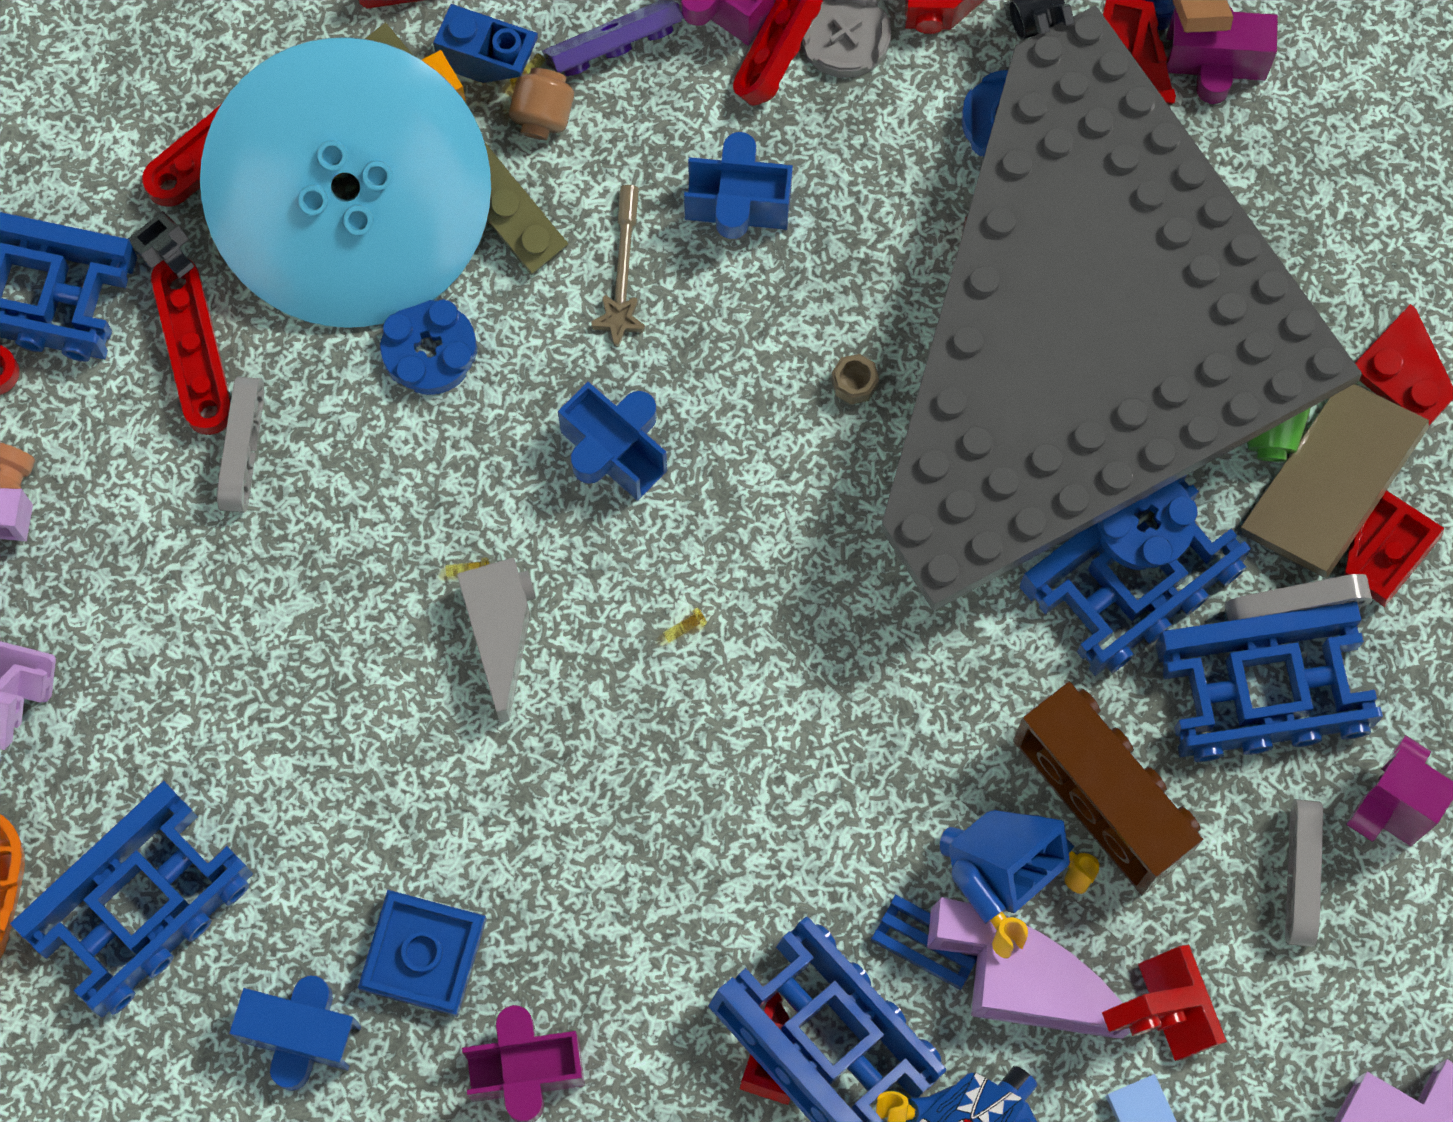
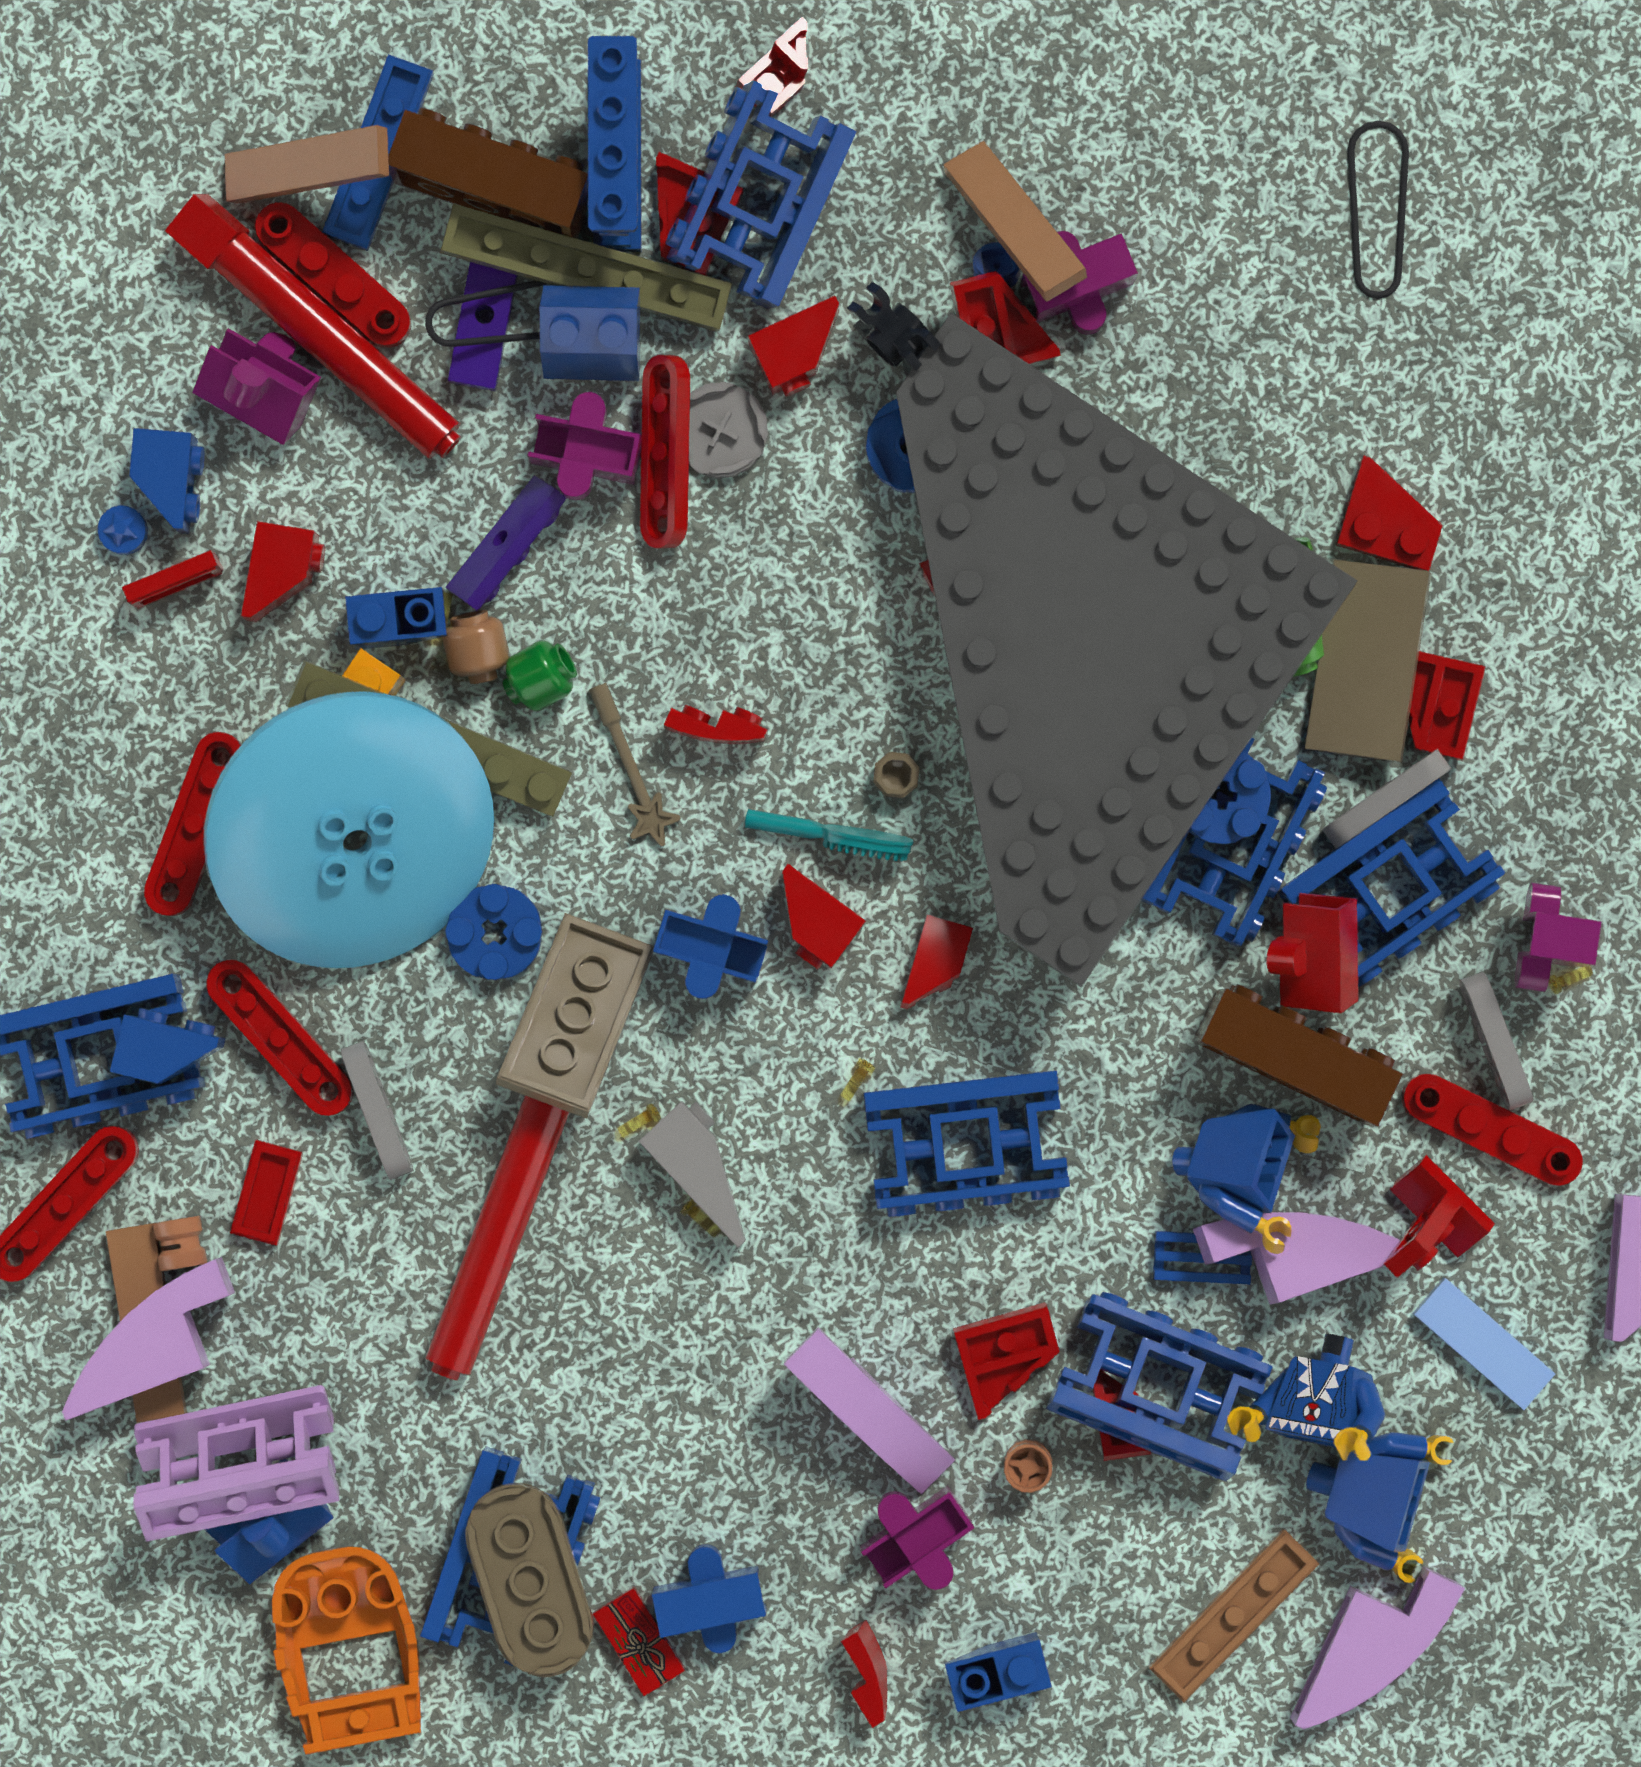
camera: 30 degrees left, 15 degrees up
(79, 293) = (161, 1051): none -> blue slope
(105, 471) = (266, 1192): none -> red tile
(138, 920) = (529, 1579): none -> dark tan tile
(161, 241) = (197, 958): black plate -> none
(210, 1050) = (638, 1642): none -> red tile
(410, 496) = (496, 1238): none -> red brick
(422, 953) = (779, 1481): blue plate -> none
(458, 439) = (575, 1015): none -> dark tan tile
(478, 680) = (700, 1218): none -> clear yellow piece
(539, 921) = (868, 1410): none -> lavender slope
(583, 151) = (539, 675): none -> green head
(658, 1047) = (1024, 1472): none -> nougat wheel
(694, 938) = (1004, 1352): none -> red wing
(722, 467) = (818, 920): none -> red slope
(725, 270) = (735, 728): none -> red slope
(738, 189) = (703, 648): blue piece -> none
(770, 684) = (962, 1105): none -> blue fence
(772, 404) = (845, 836): none -> teal piece
(810, 553) = (937, 959): none -> red slope
(1170, 699) = (1317, 954): none -> red piece
(1263, 957) = (1492, 1129): none -> red plate
(1402, 852) = (1557, 983): none -> clear yellow piece

